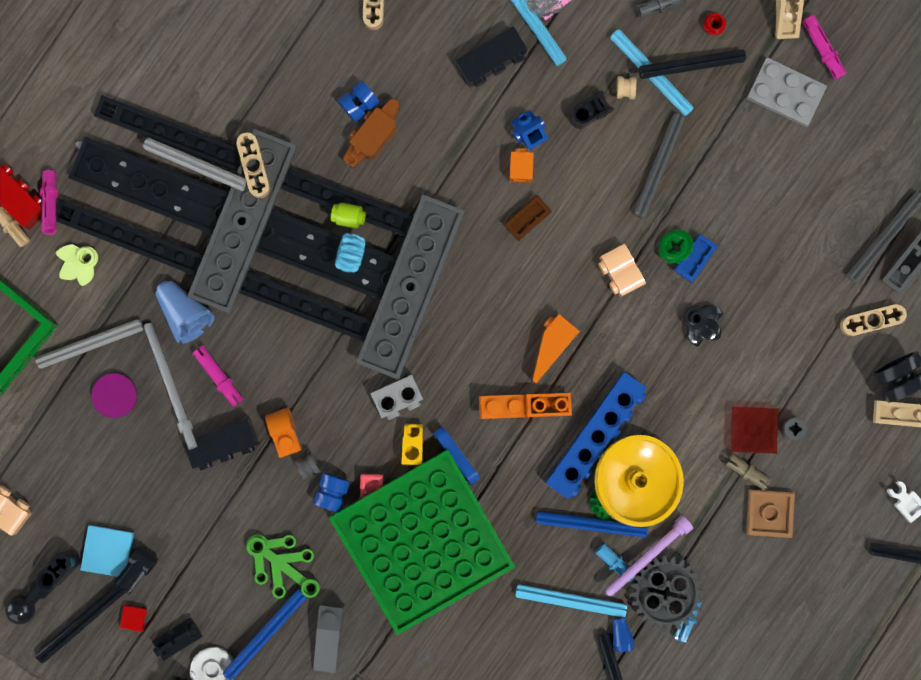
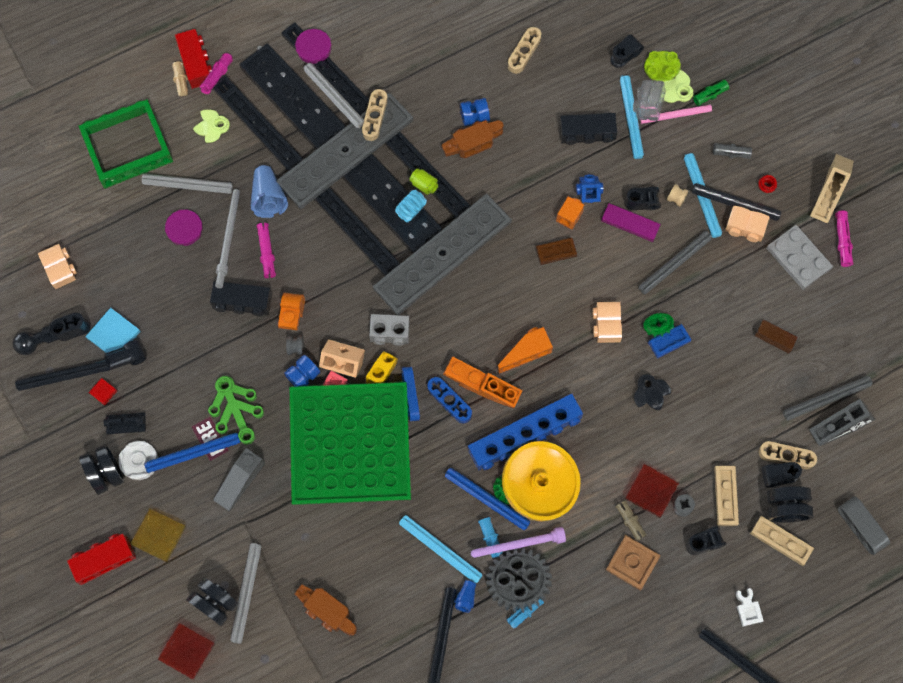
camera: 25 degrees right, 15 degrees down
(139, 114) = (313, 46): none -> magenta tile
(267, 605) = (207, 432): none -> clear pink sticker
(365, 456) = (341, 358): none -> light nougat brick
(517, 440) = (449, 408): none -> blue beam
(590, 143) = (630, 222): none -> magenta tile
(715, 83) = (747, 224): none -> light nougat brick
(803, 195) = (776, 336): none -> reddish brown slope
(831, 396) = (726, 496): none -> tan plate
(836, 451) = (708, 539): none -> black piece
(874, 348) = (777, 474): none -> black piece

